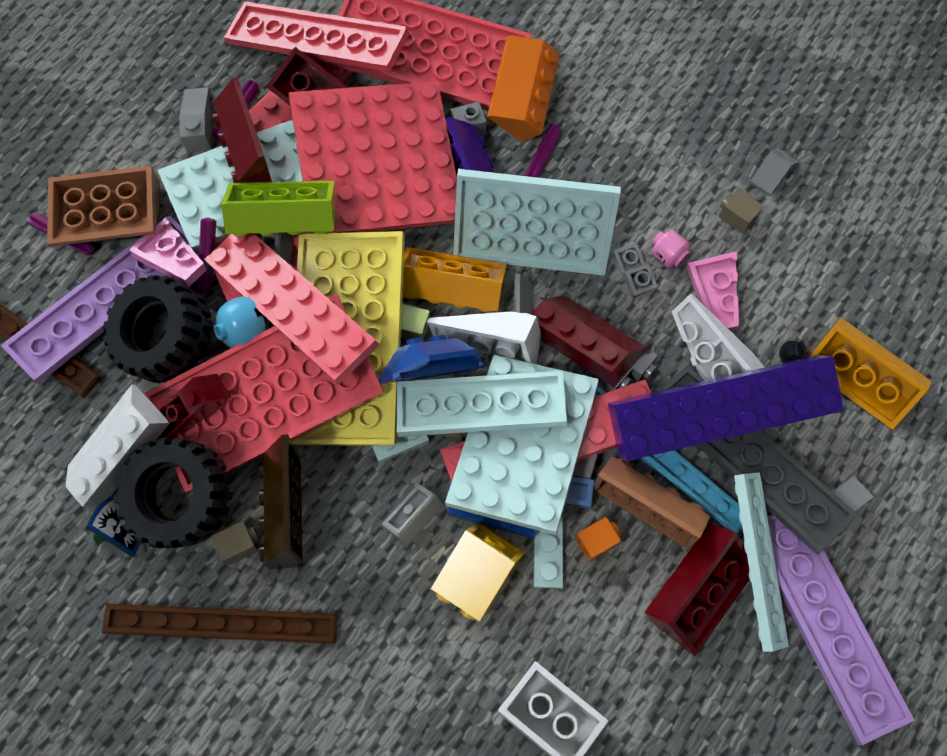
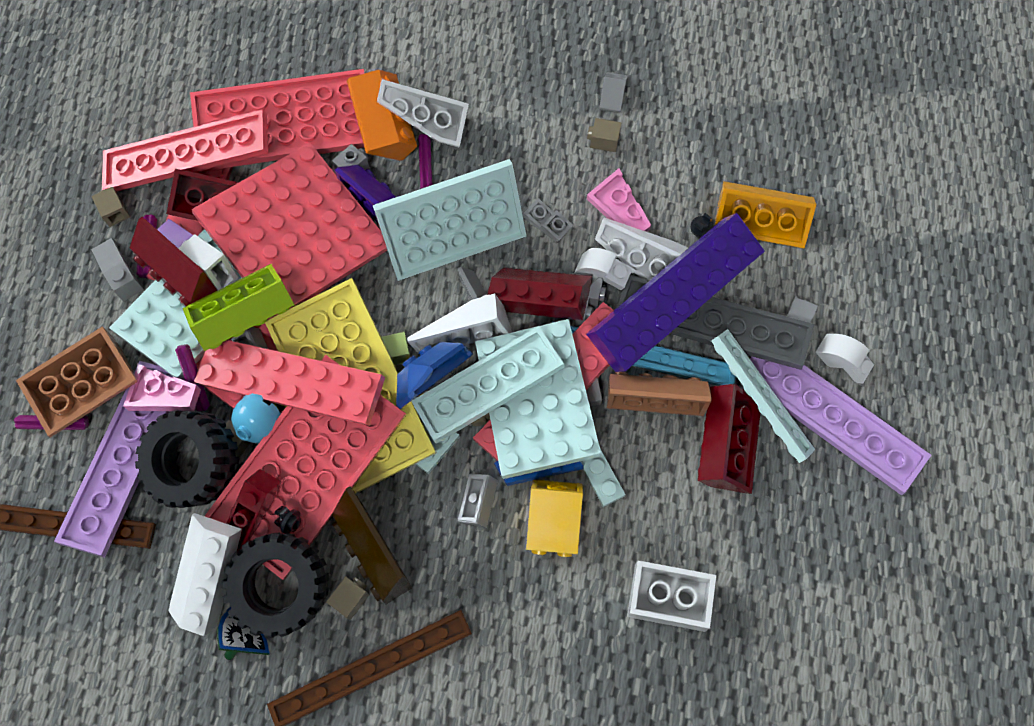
camera: 25 degrees left, 0 degrees up
(217, 437) = (289, 520): none -> black plate
(222, 57) = (110, 206): none -> dark tan brick
(263, 114) = (174, 233): none -> medium lavender tile
(277, 151) = (210, 261): none -> white slope
(453, 279) = (410, 297): light orange slope -> none
(571, 106) = (430, 113): none -> white wedge
(580, 493) = (601, 415): medium blue plate -> none
(598, 539) = (633, 443): orange brick -> none
(666, 342) = (603, 264): none -> white brick
(670, 249) = (567, 190): bright pink head -> none
(878, 564) = (846, 353): none -> white brick

